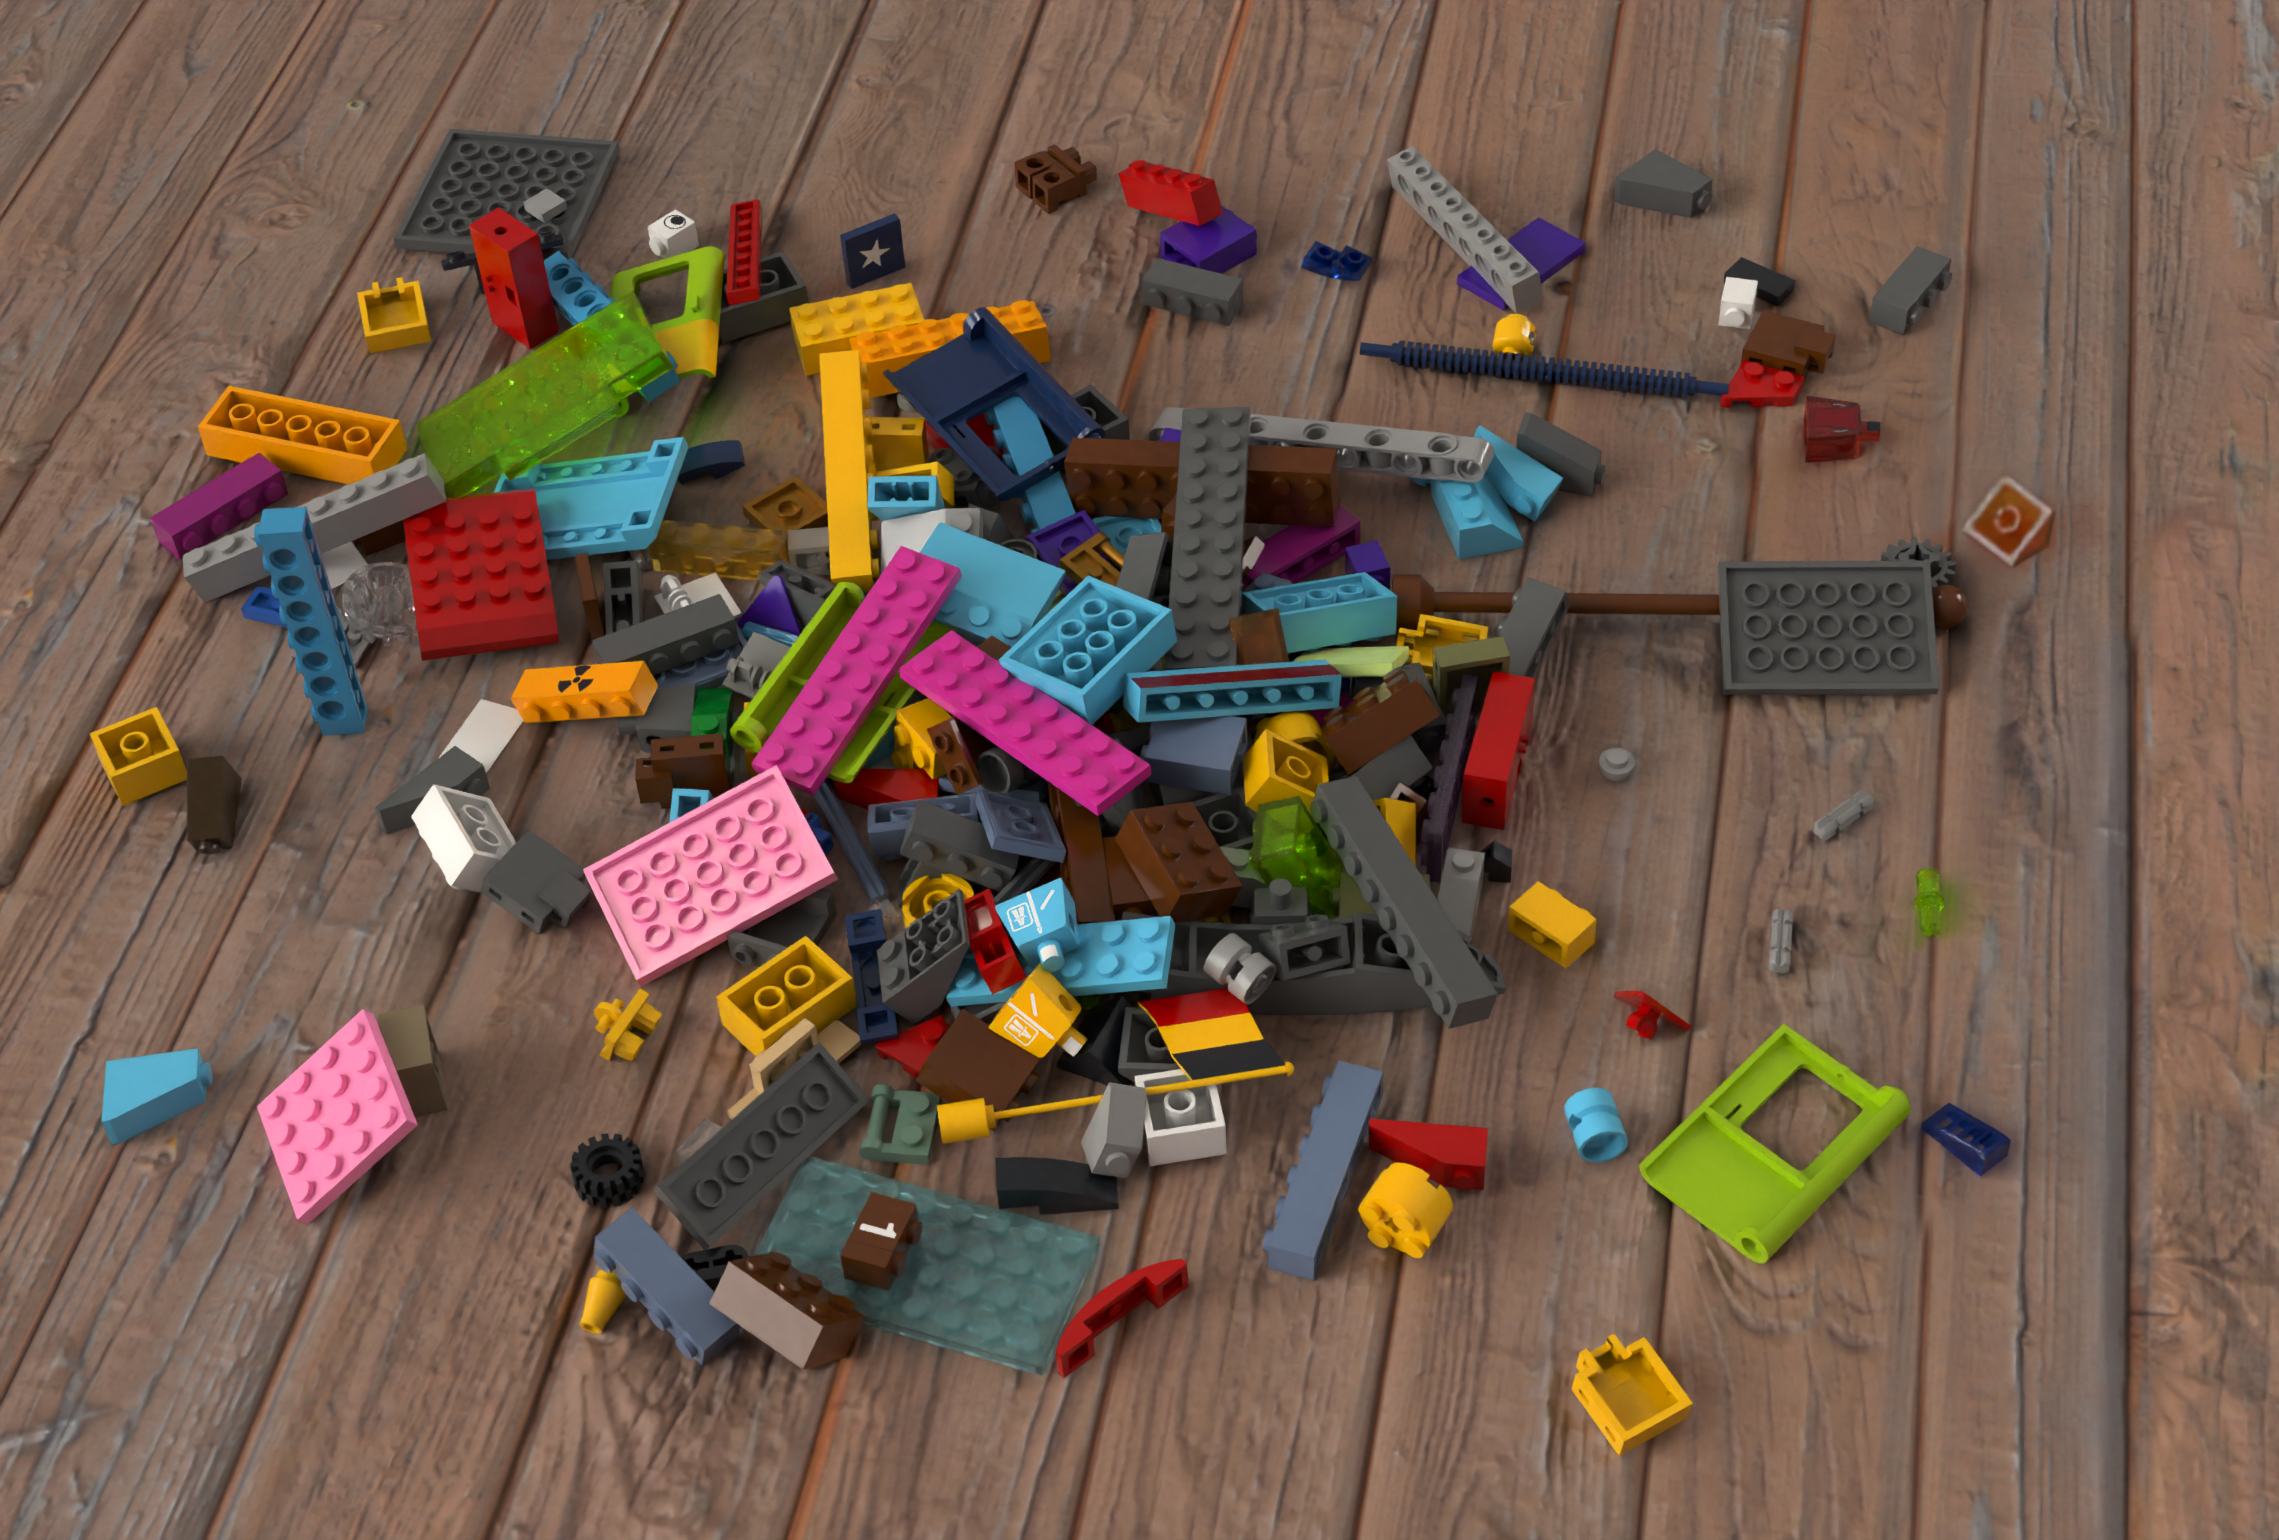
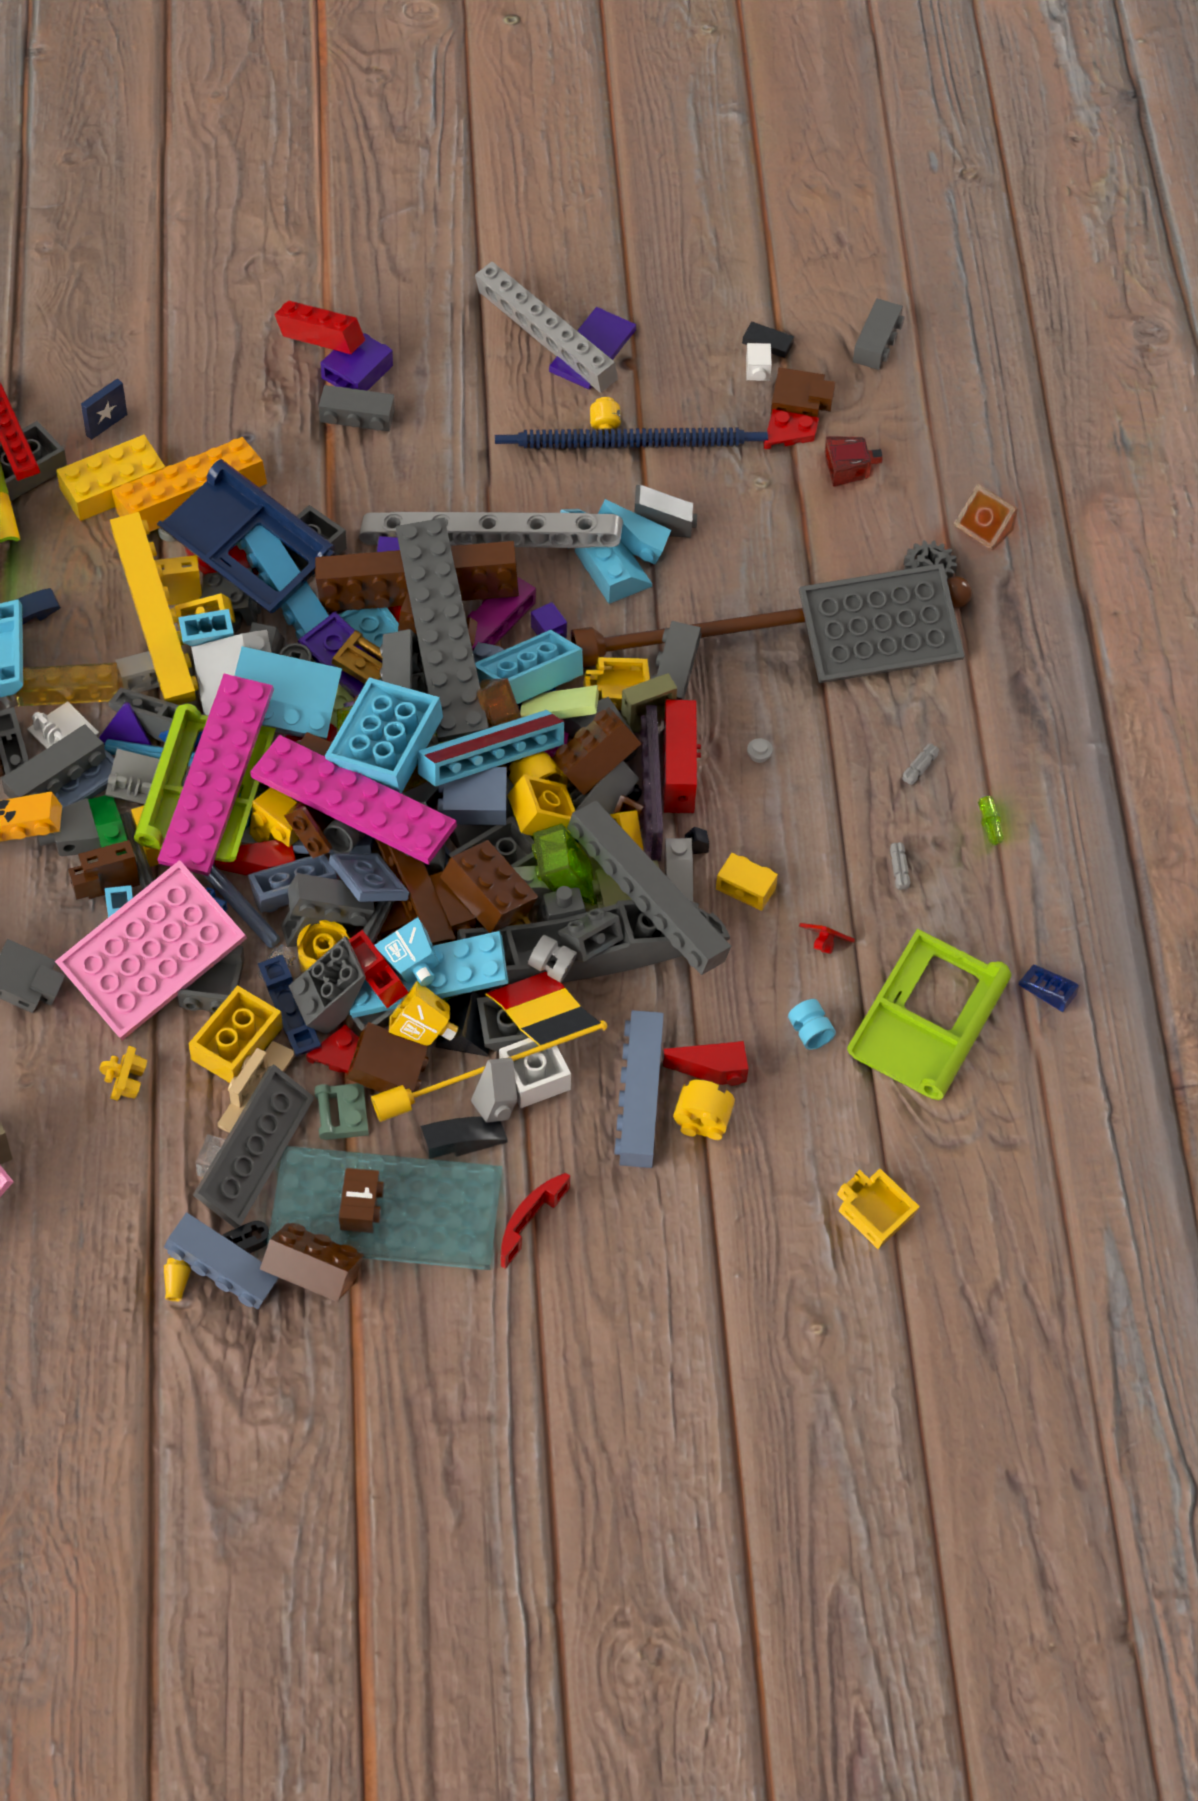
camera: 20 degrees left, 10 degrees up
(612, 1186) = (150, 1196): black tyre -> none
(787, 508) = (107, 640): pearl gold plate -> none
(1054, 176) = (221, 320): reddish brown hips -> none
(1343, 265) = (463, 367): clear blue slope -> none
(1664, 186) = (682, 267): dark grey slope -> none

